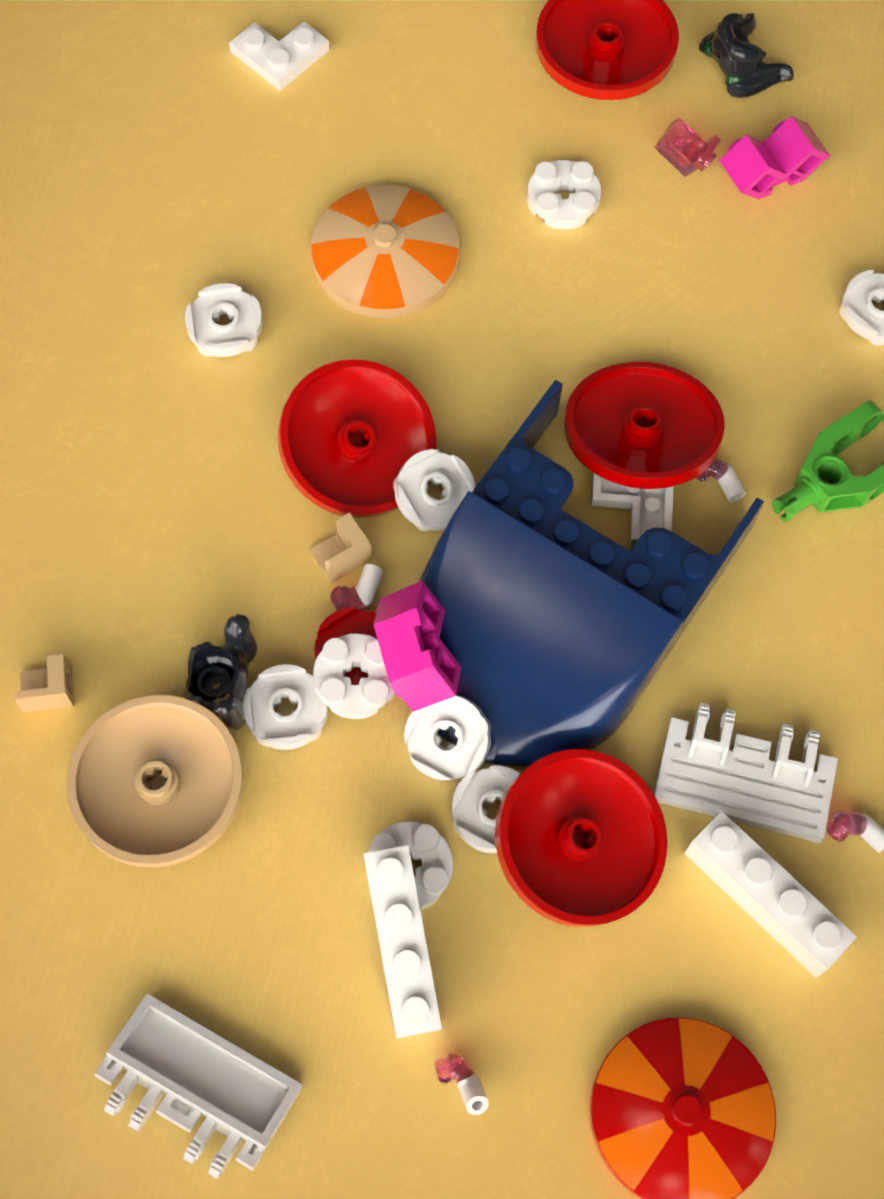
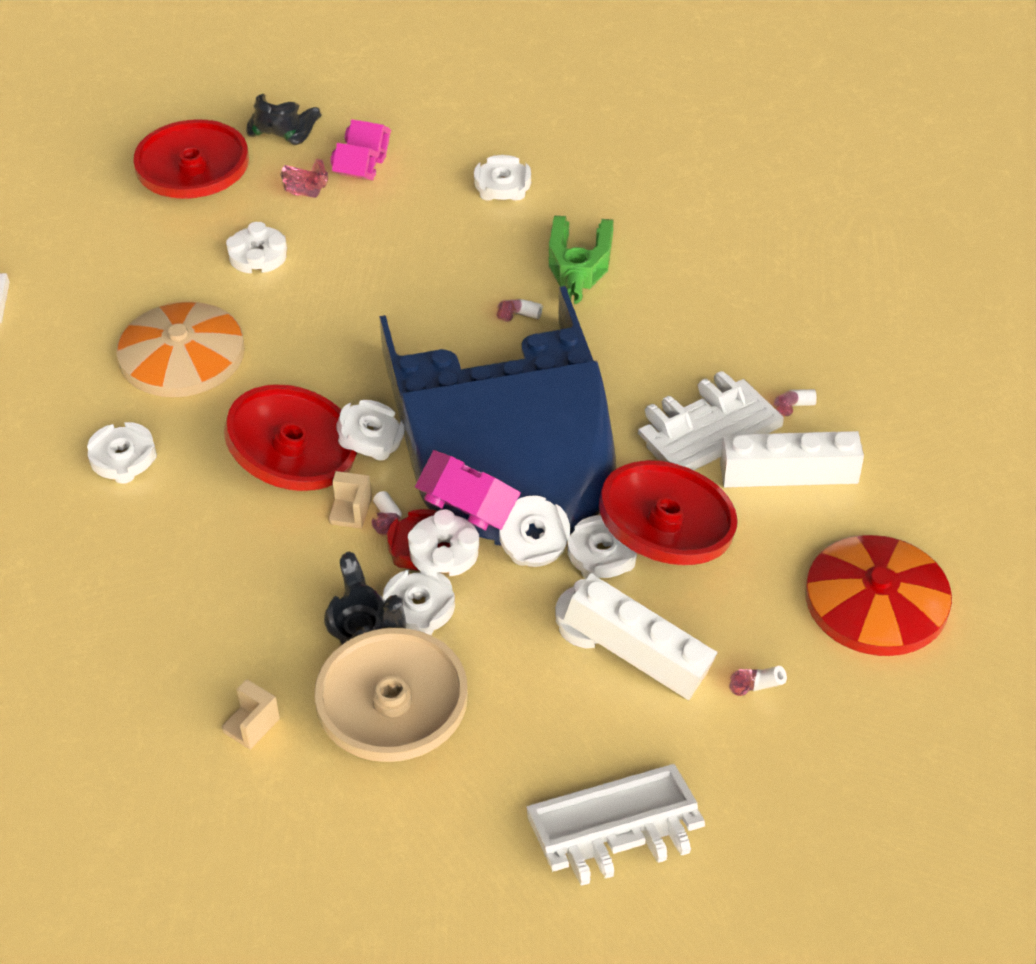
camera: 45 degrees left, 20 degrees down
(644, 425) = (450, 310): red dish -> none
(648, 506) = (487, 344): white plate -> none

